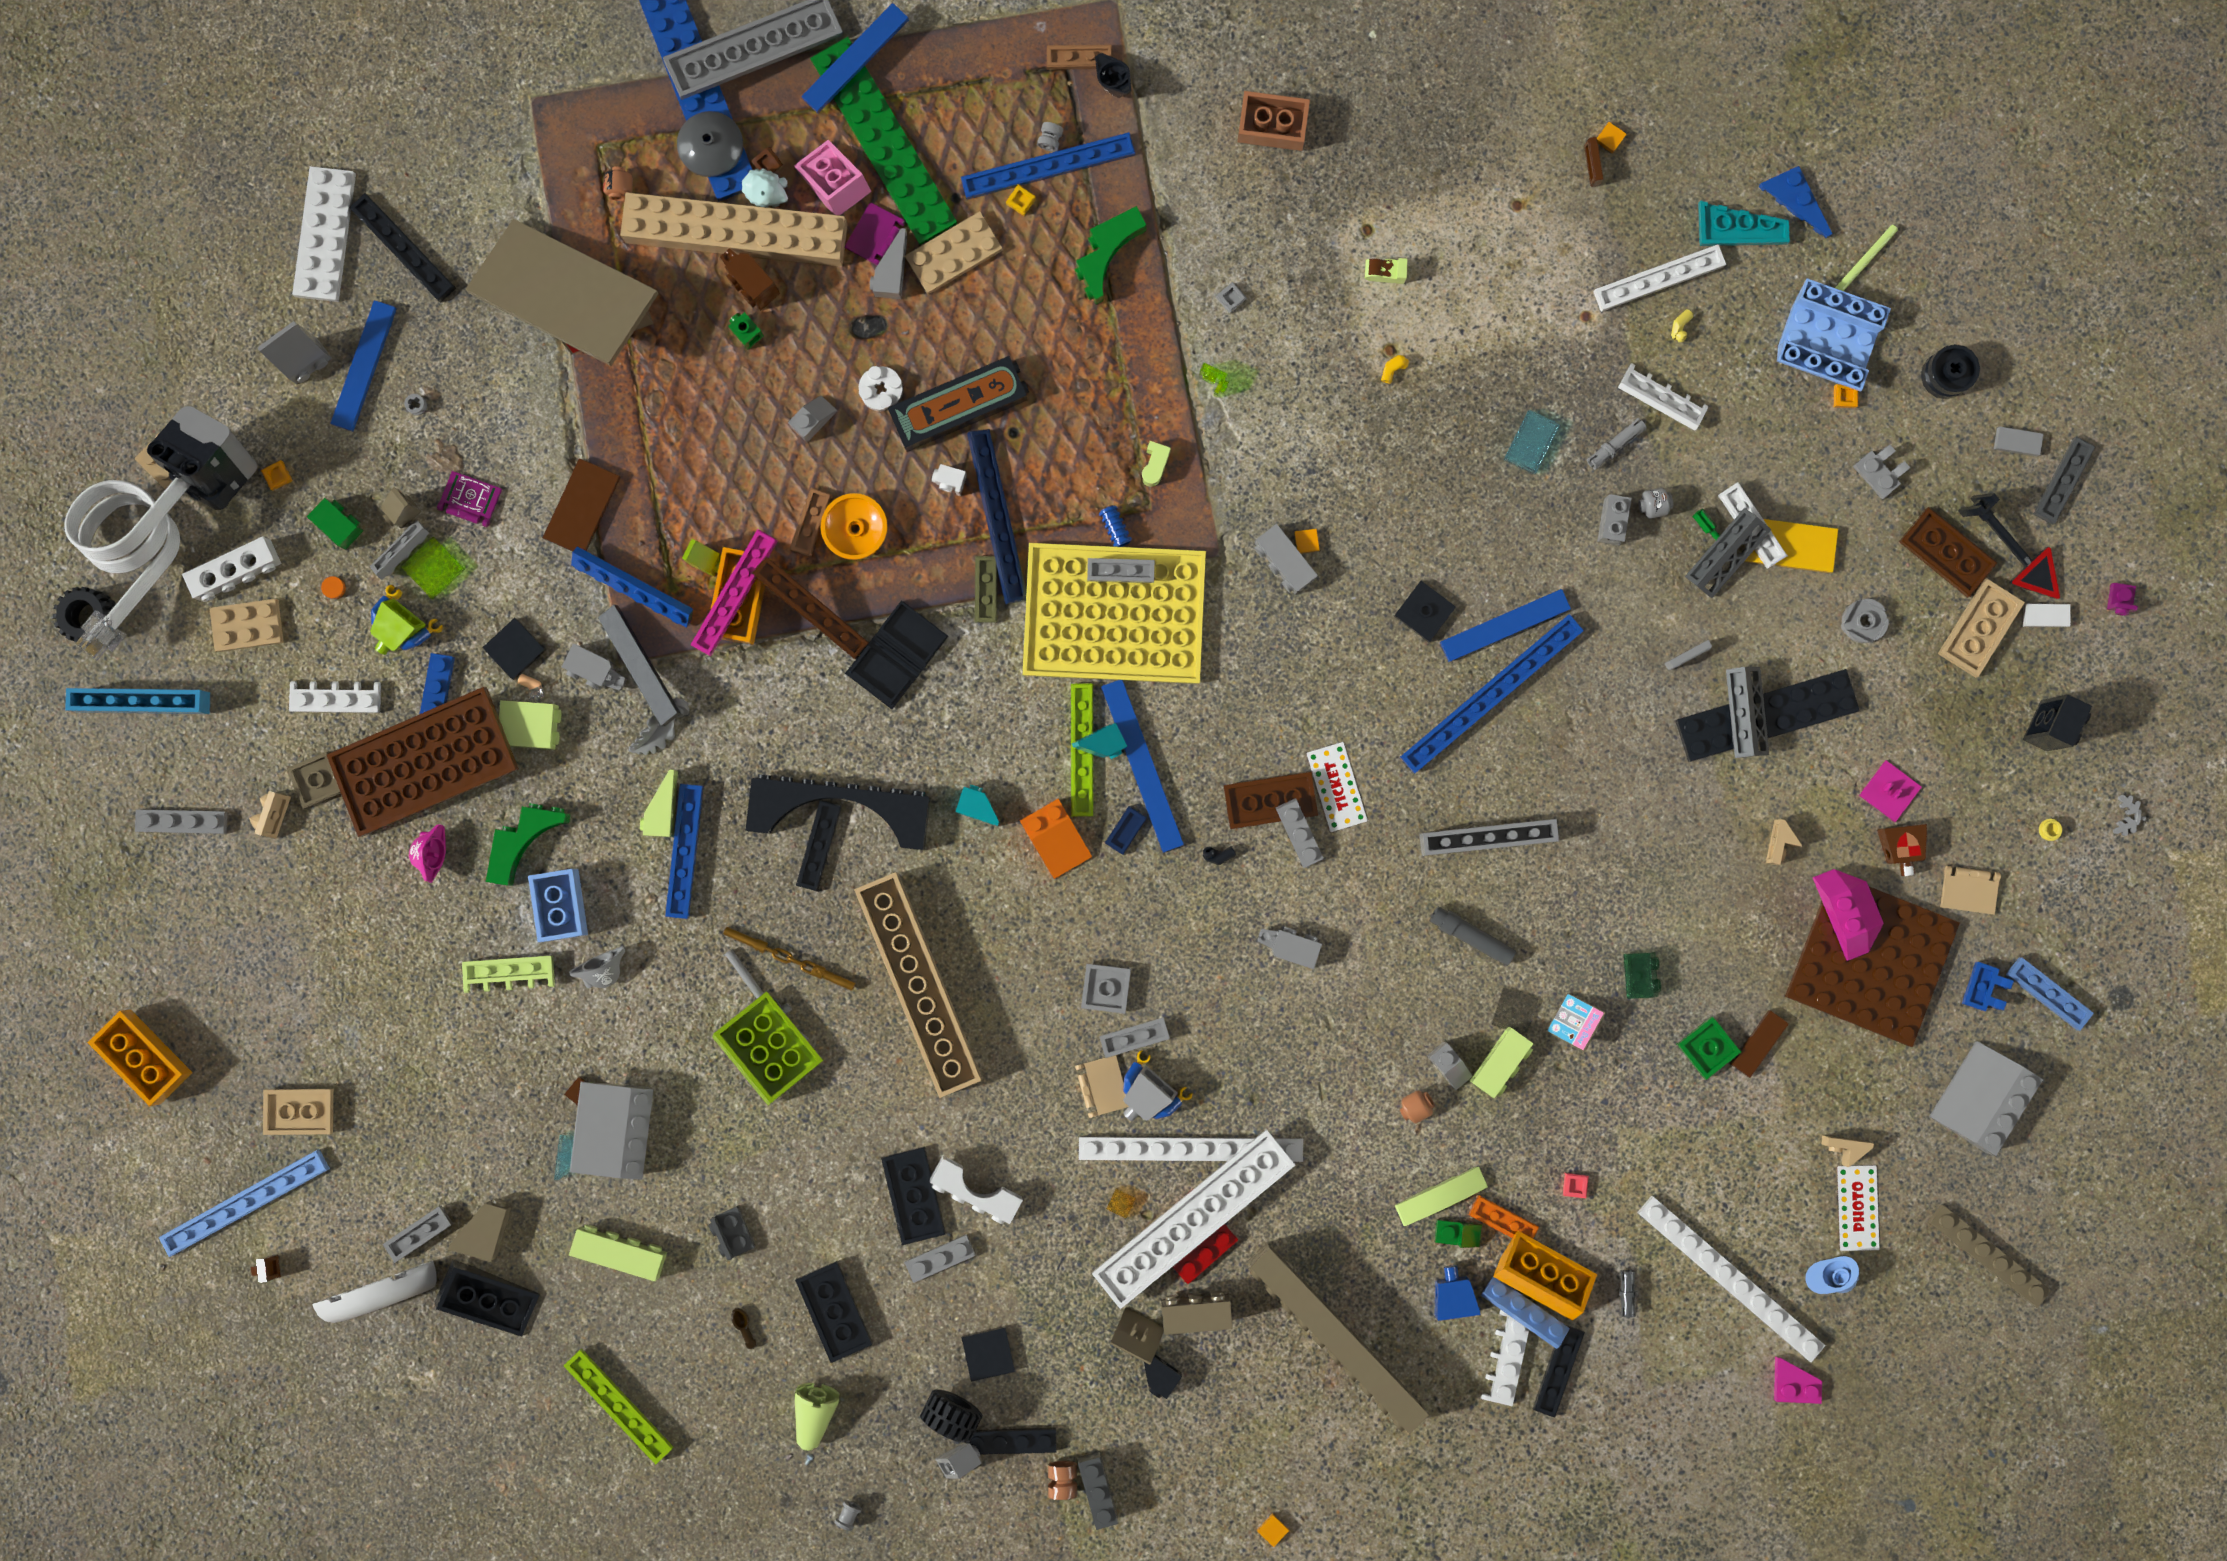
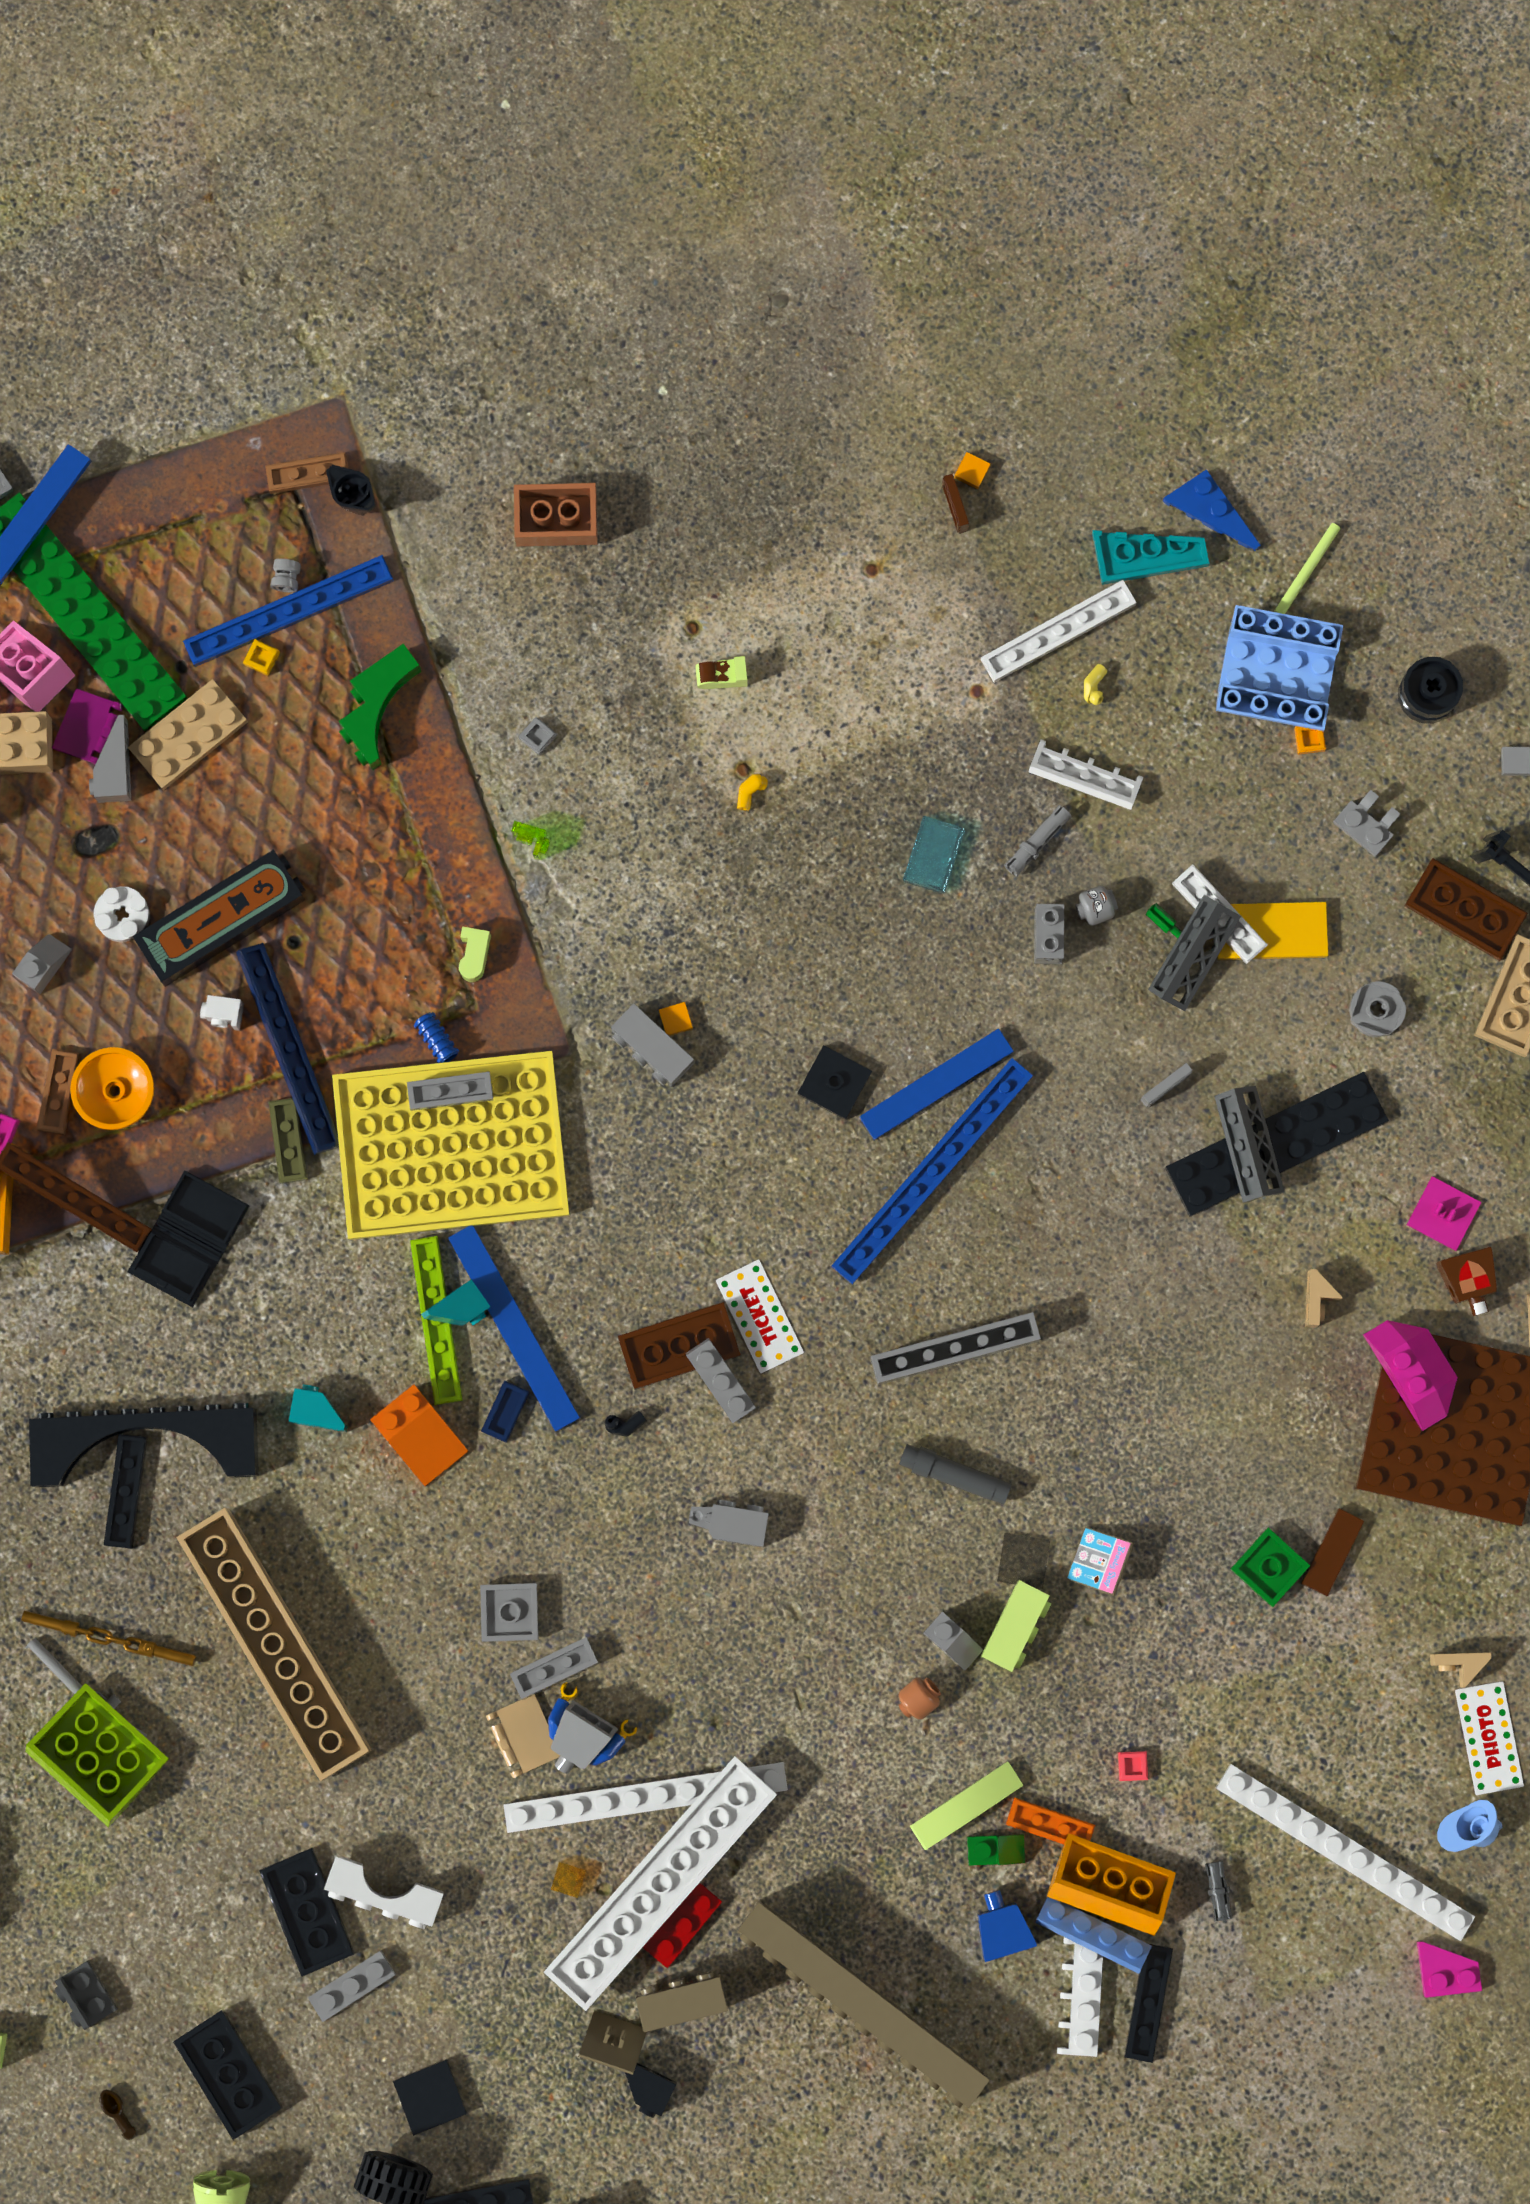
camera: 10 degrees left, 5 degrees down
(1641, 975) = (1173, 1489): clear green bracket -> none

